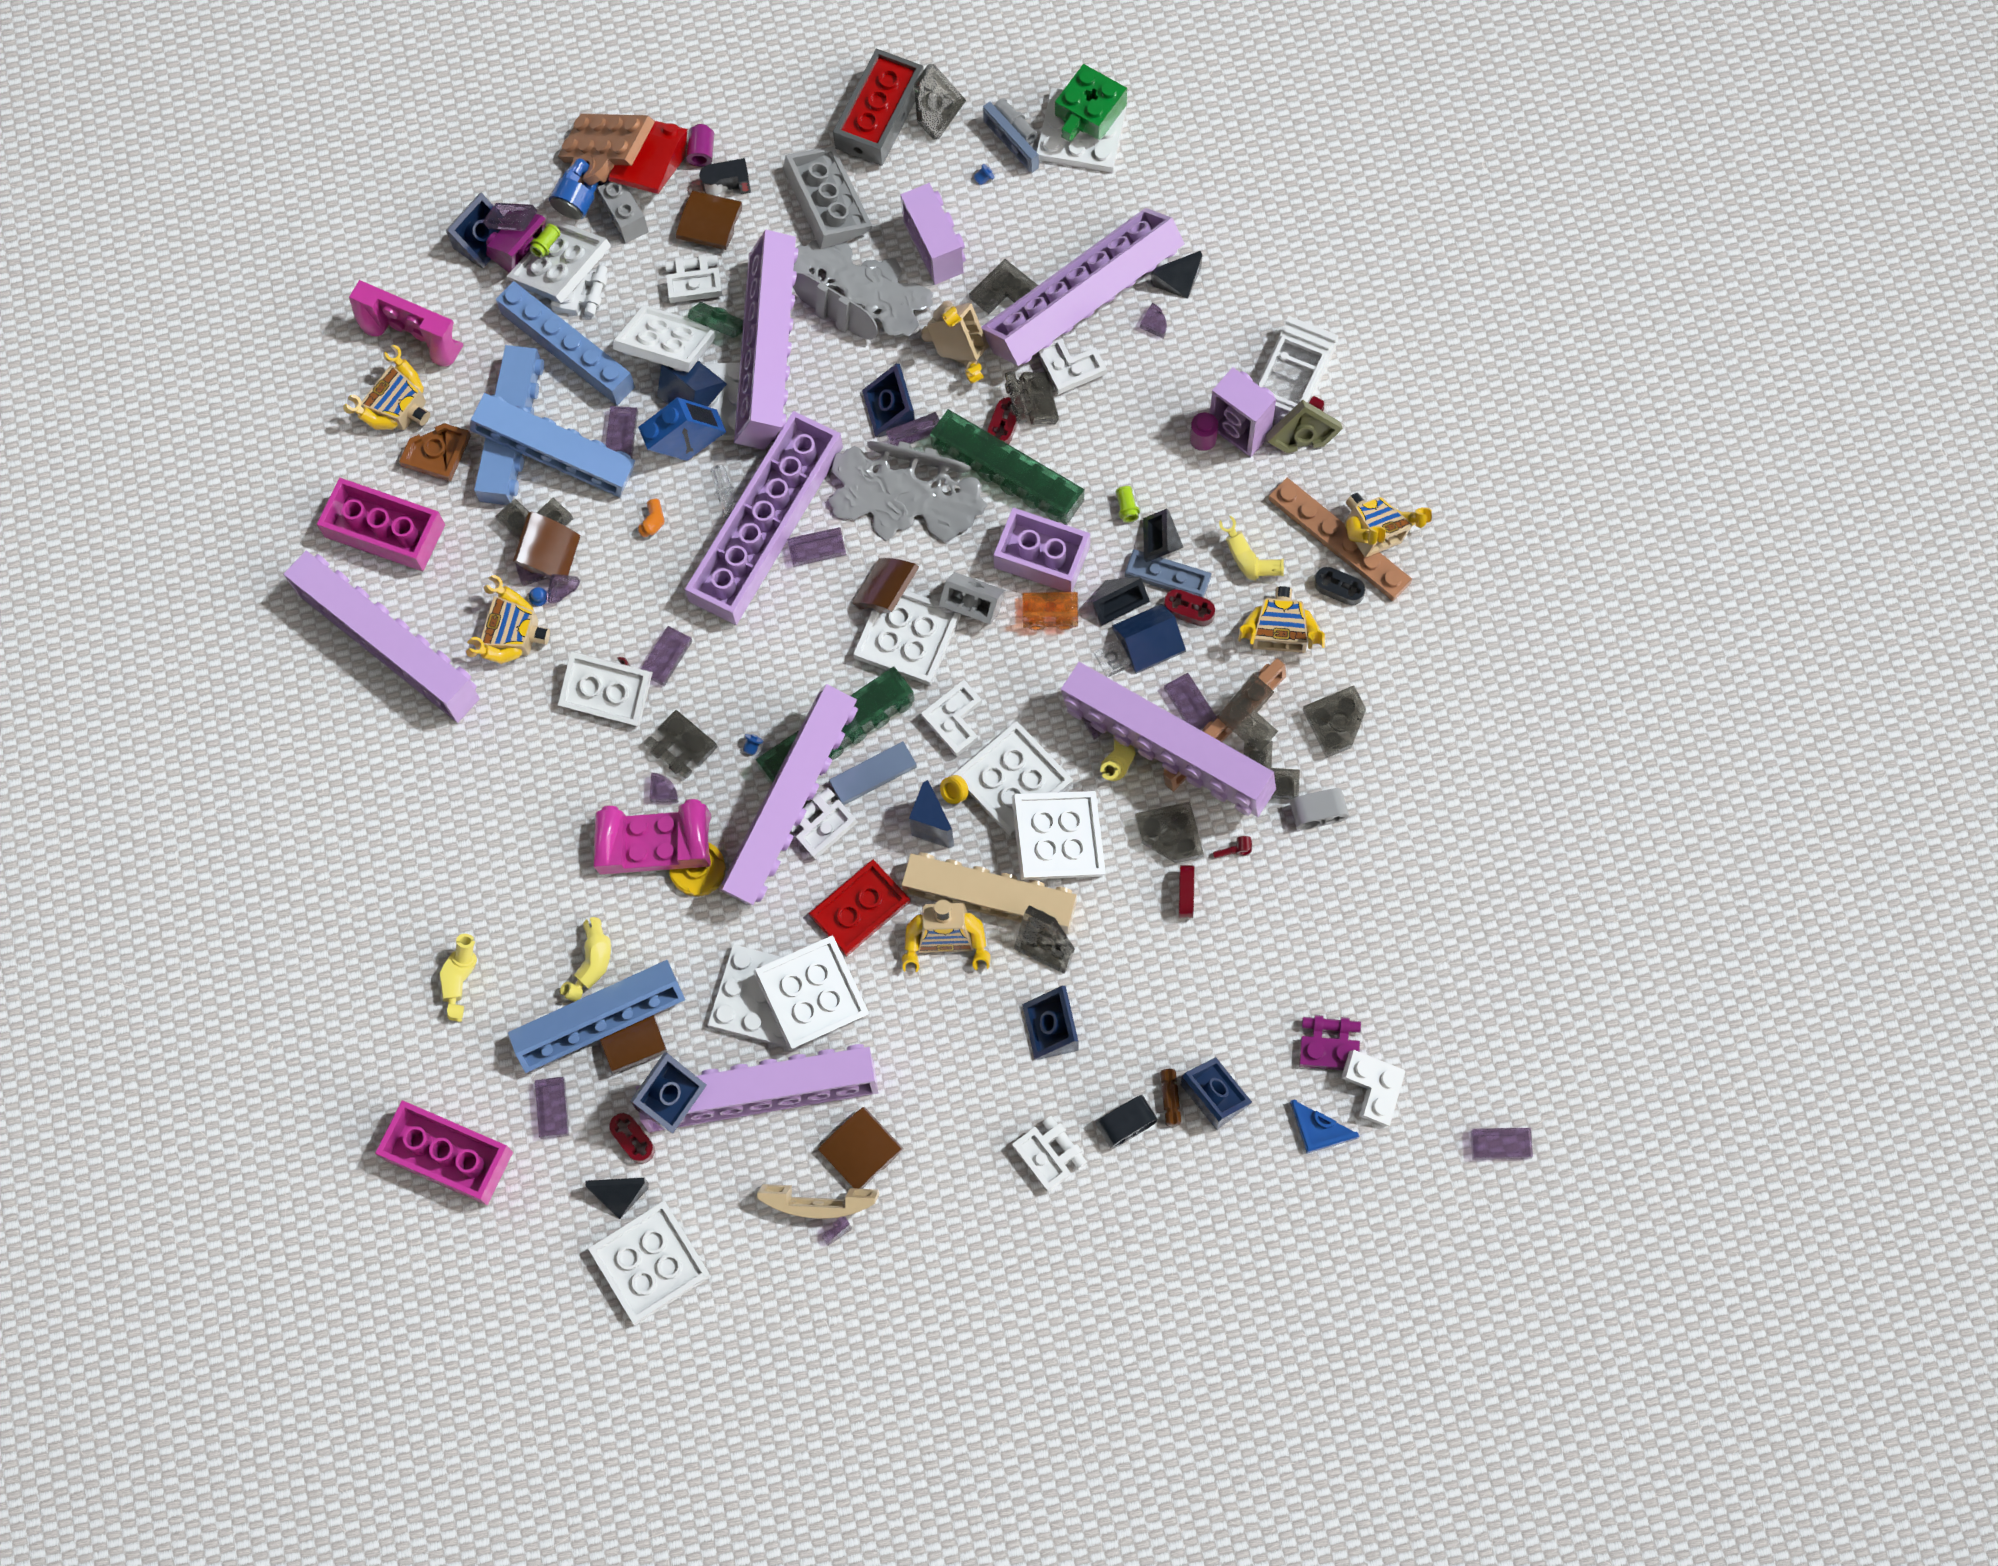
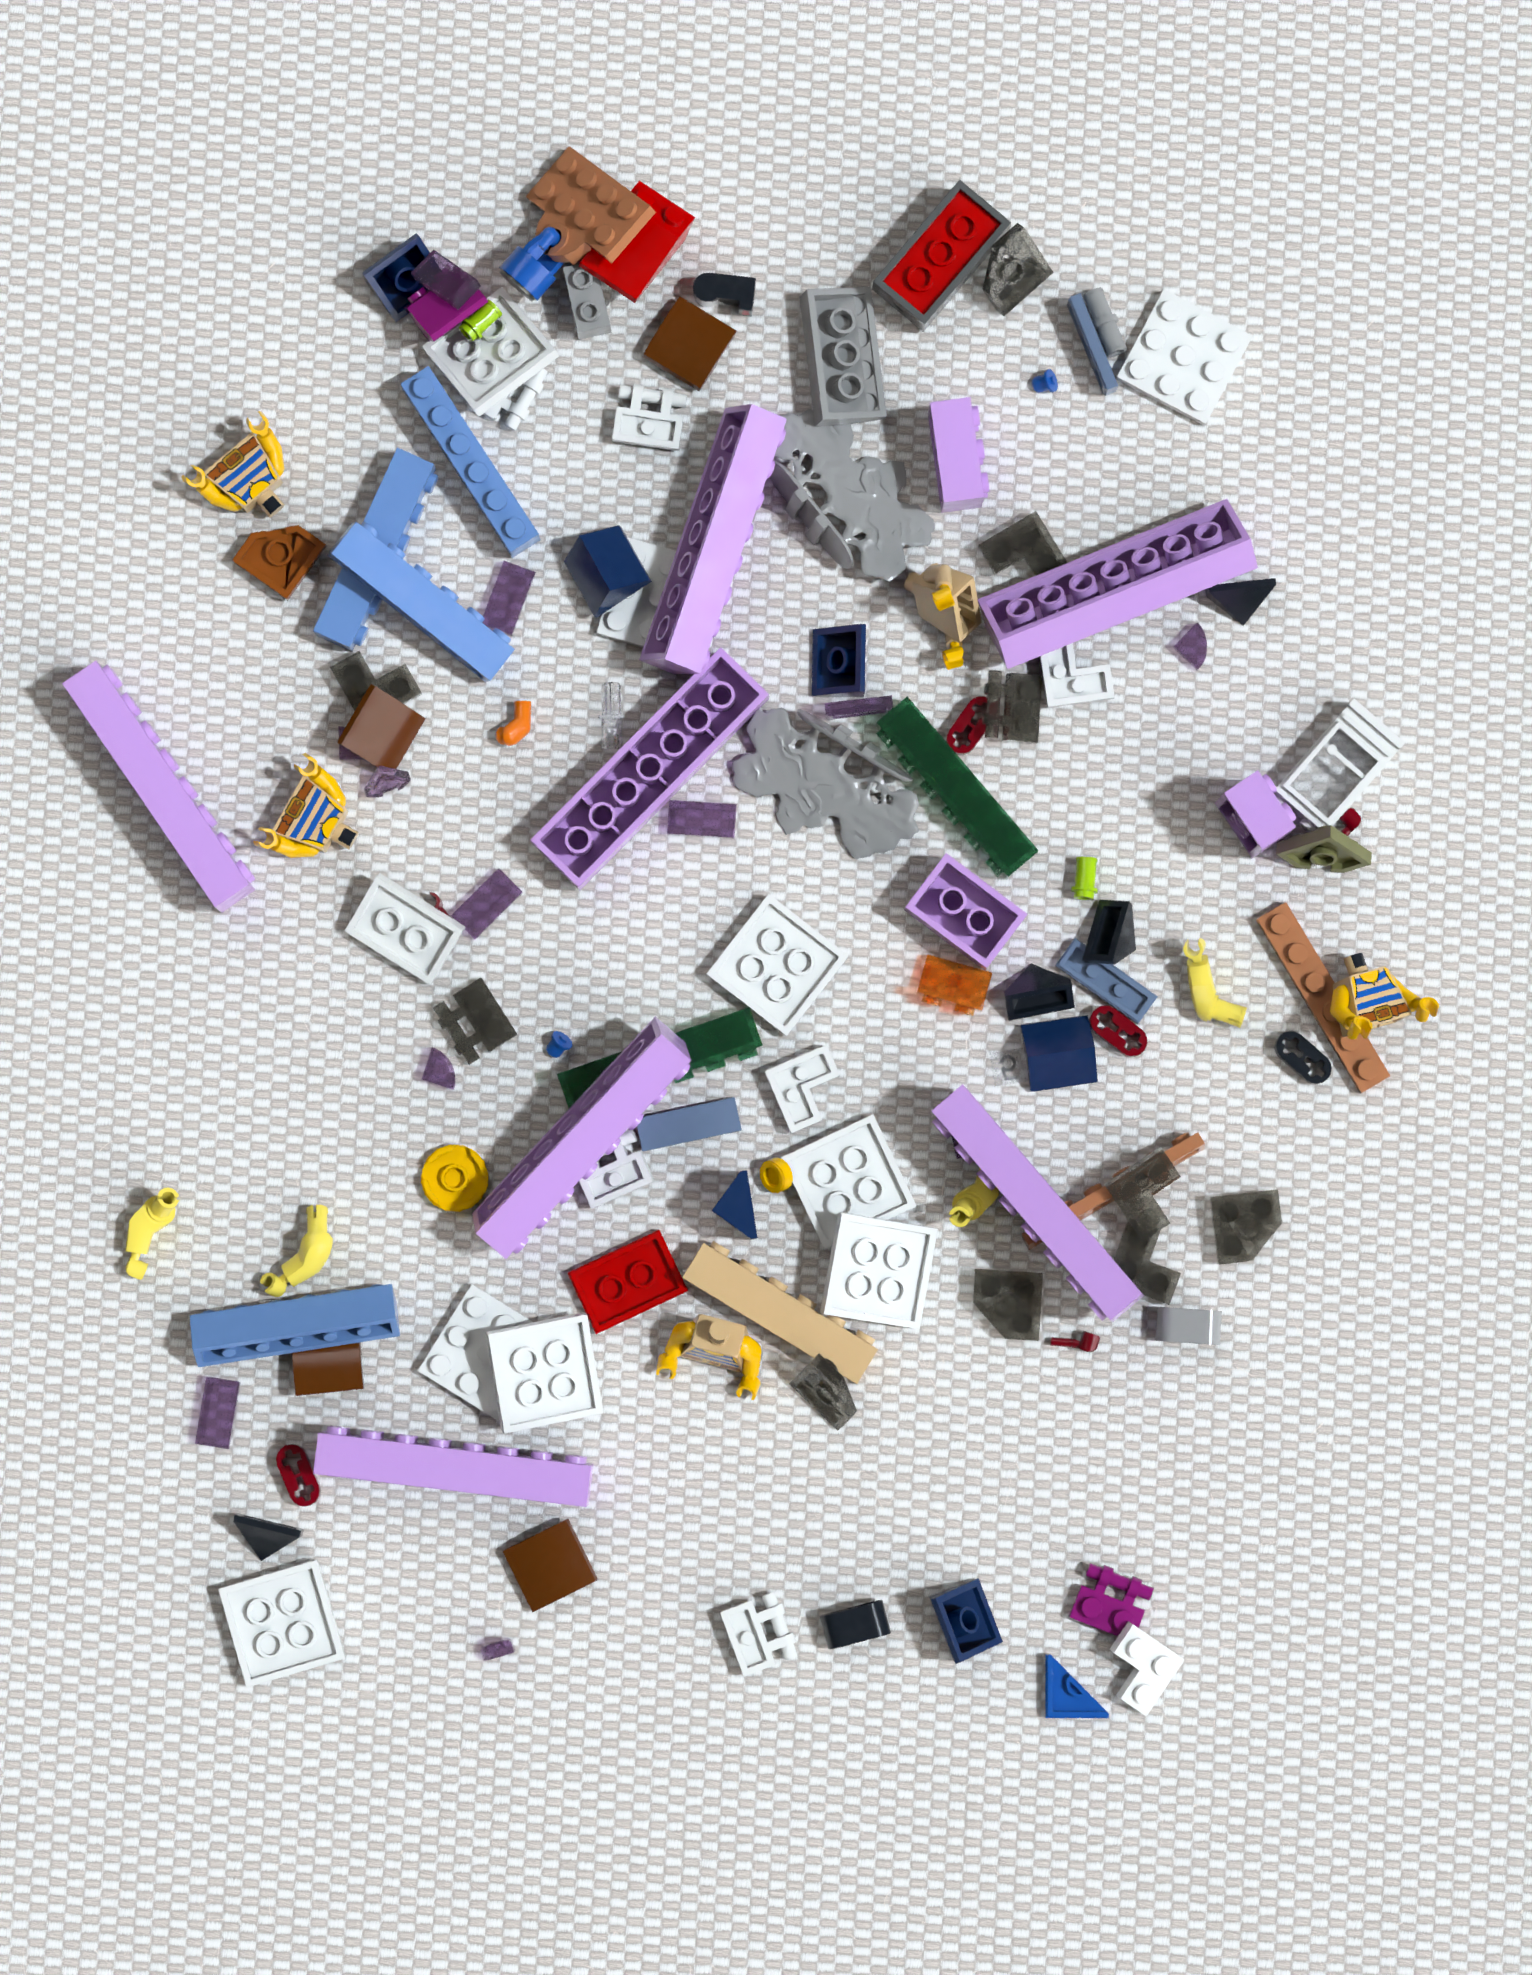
camera: 10 degrees right, 15 degrees up
(378, 309) = (247, 353): dark pink piece -> none
(381, 524) = (191, 638): dark pink brick -> none
(444, 1152) = (85, 1433): dark pink brick -> none
(538, 596) = (355, 781): blue piece -> none
(652, 840) = (412, 1132): dark pink piece -> none
(664, 338) = (593, 498): white plate -> none
(667, 1093) = (353, 1458): dark blue slope -> none
(682, 429) = (581, 633): blue brick -> none
(700, 145) = (706, 237): magenta brick -> none
(716, 319) = (663, 484): clear green plate -> none
(781, 1198) = (482, 1618): tan slope -> none
(885, 585) = (768, 900): reddish brown slope -> none
(972, 597) = (865, 947): light grey brick -> none
(1051, 1024) = (803, 1487): dark blue slope -> none
(1090, 104) = (1201, 358): green hinge -> none
(1170, 1097) = (913, 1610): reddish brown axle -> none
(1186, 891) = (1005, 1378): dark red beam -> none
(1190, 701) = (1082, 1149): clear purple tile -> none
(1204, 431) = (1205, 815): magenta brick -> none
(1282, 625) = (1218, 1089): torso -> none
(1501, 1143) = (1264, 1772): clear purple tile -> none

